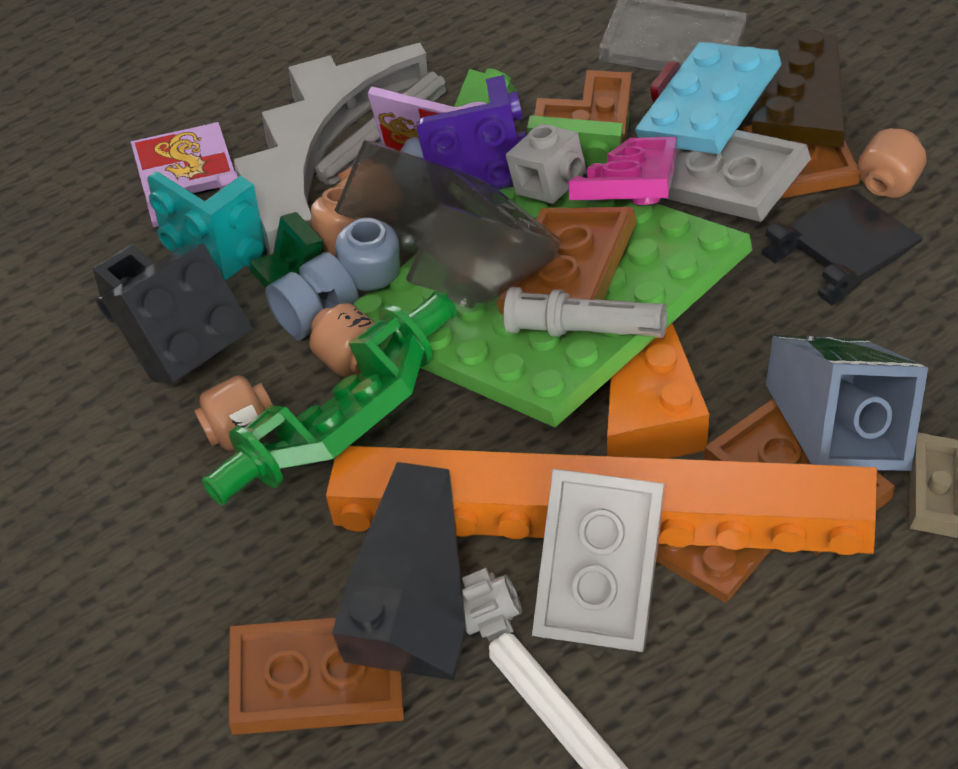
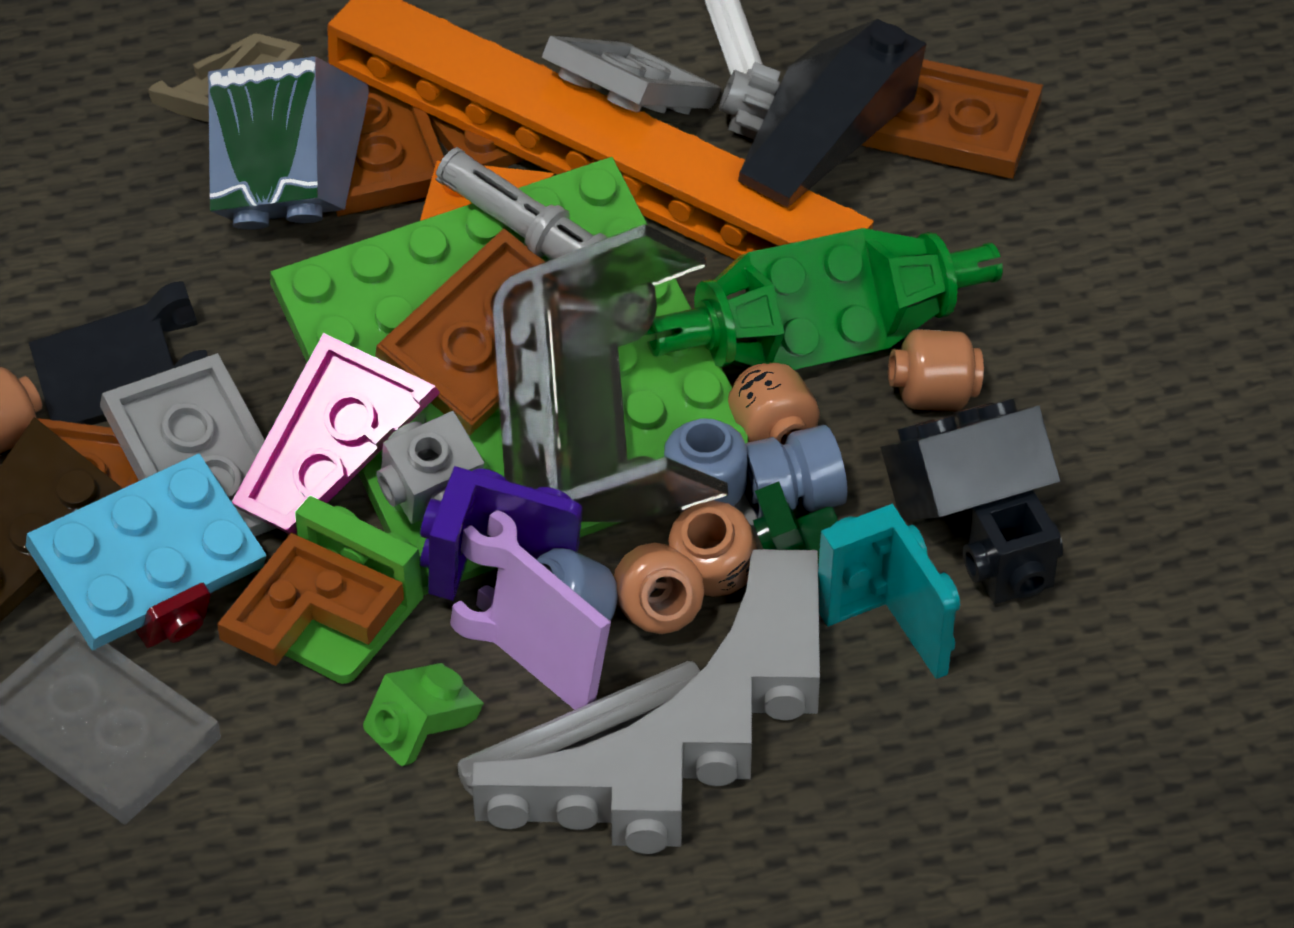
camera: 160 degrees left, 0 degrees up
(189, 157) = (882, 768): flag -> none

